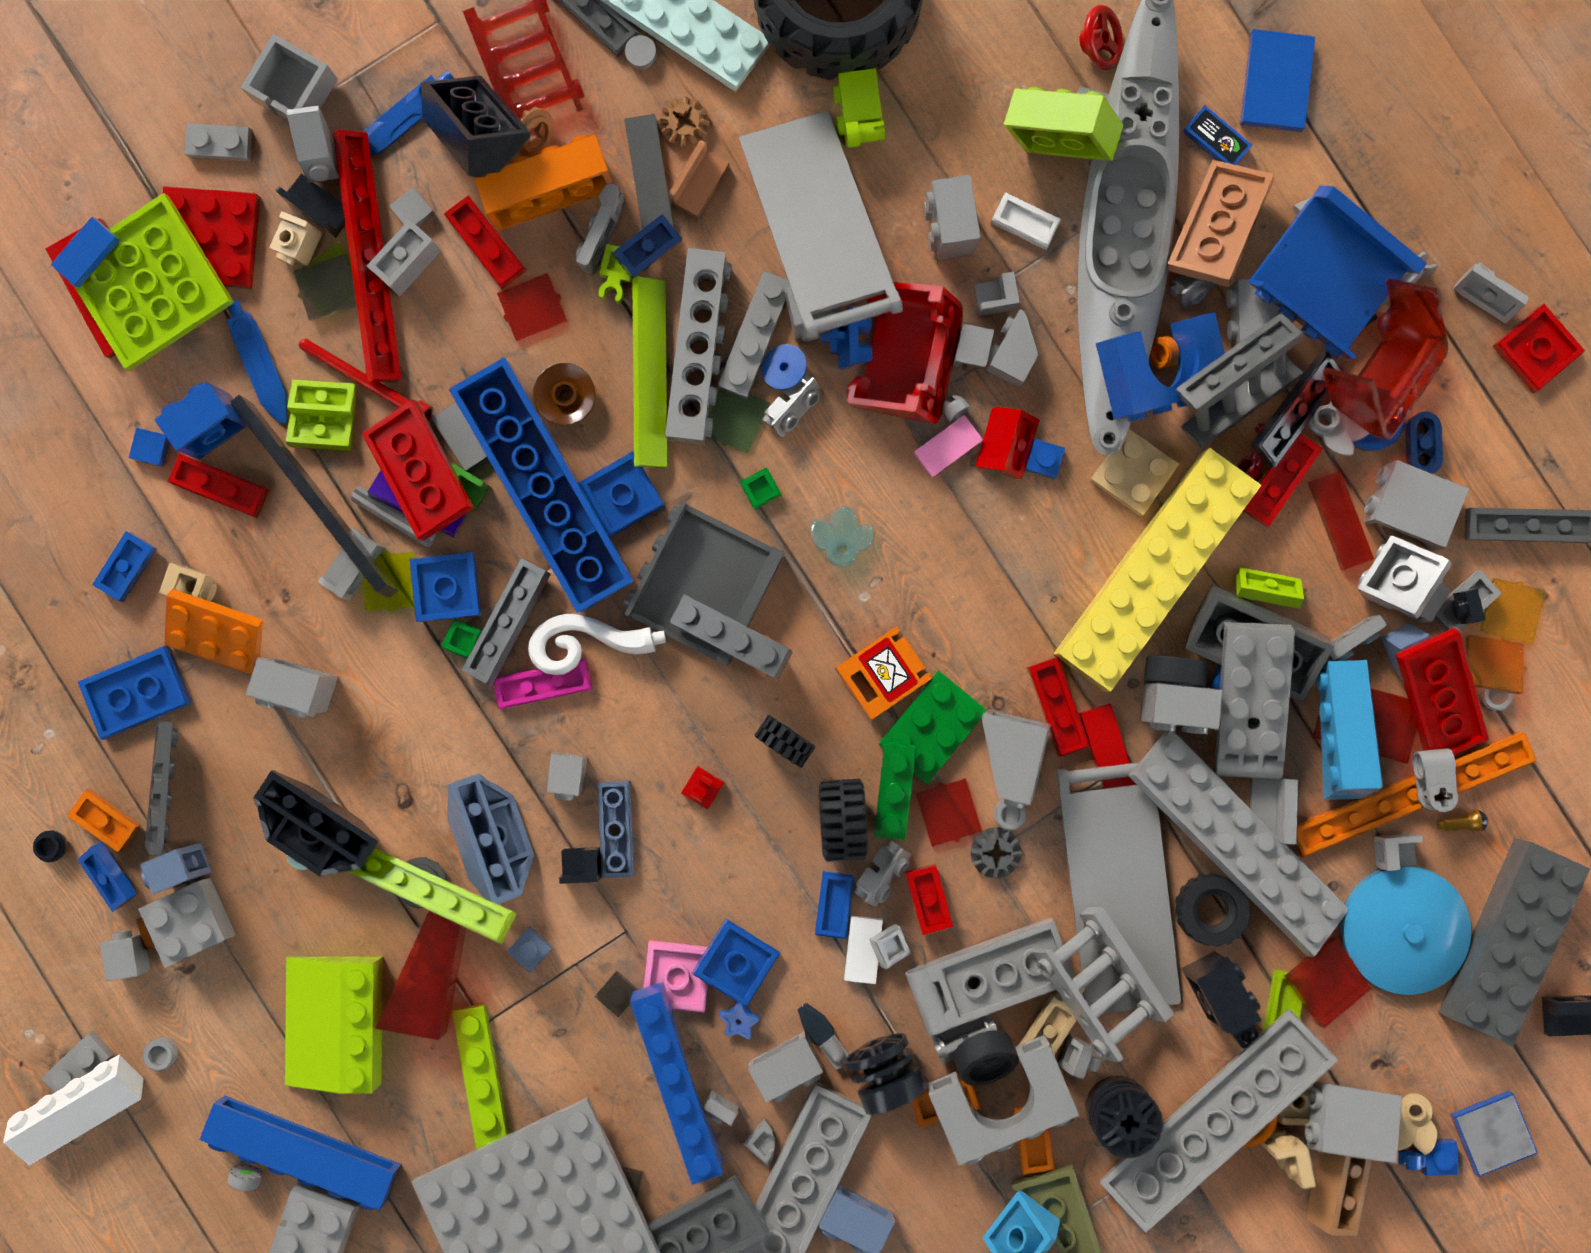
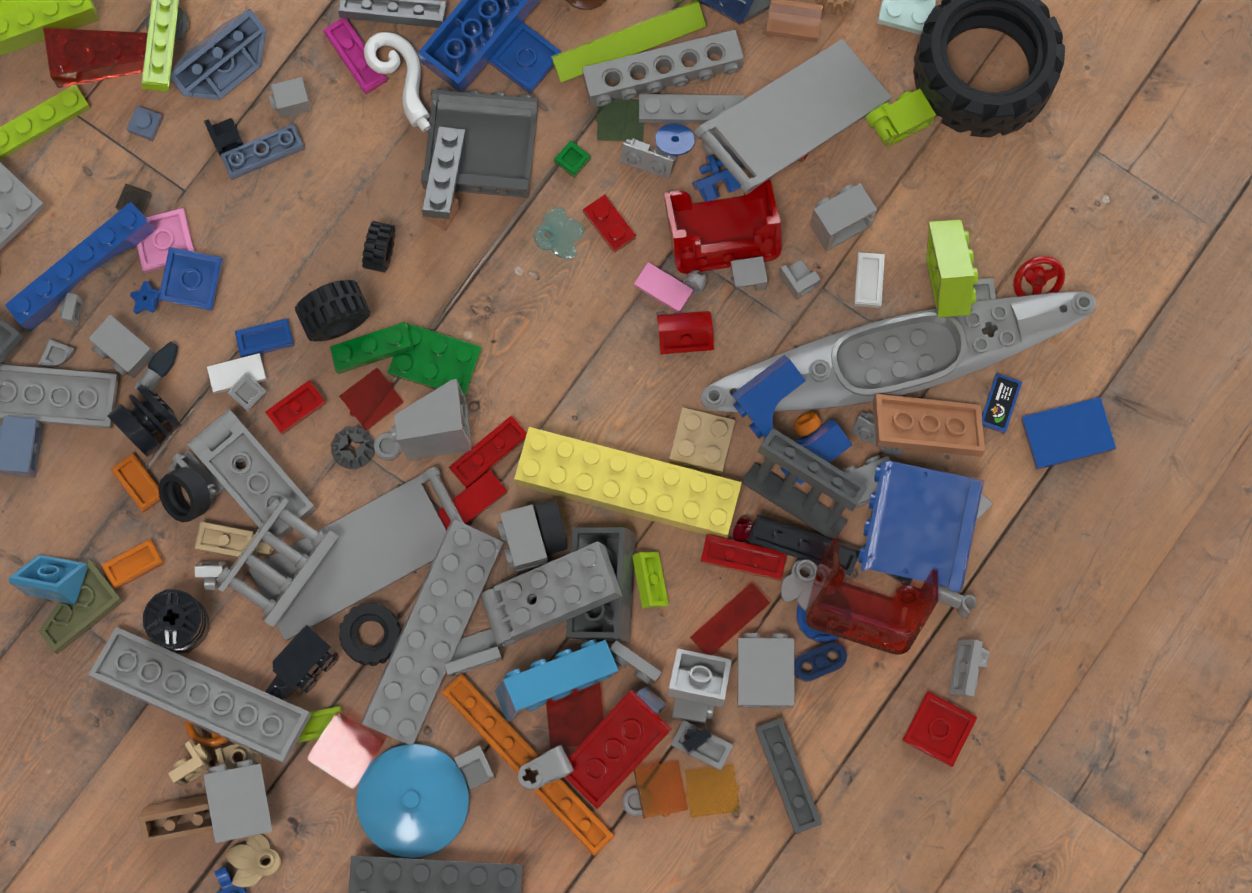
camera: 65 degrees right, 10 degrees down
(702, 787) = (319, 204): red tile -> none
(851, 477) = (609, 223): none -> red plate
(878, 884) = (291, 363): light grey hinge -> none
(889, 670) = (465, 308): container -> none
(975, 1135) = (120, 506): light grey arch -> none
(1016, 353) = (759, 308): light grey slope -> none
(1045, 459) = (684, 366): blue plate -> none
(1474, 820) = (524, 824): pearl gold piece -> none

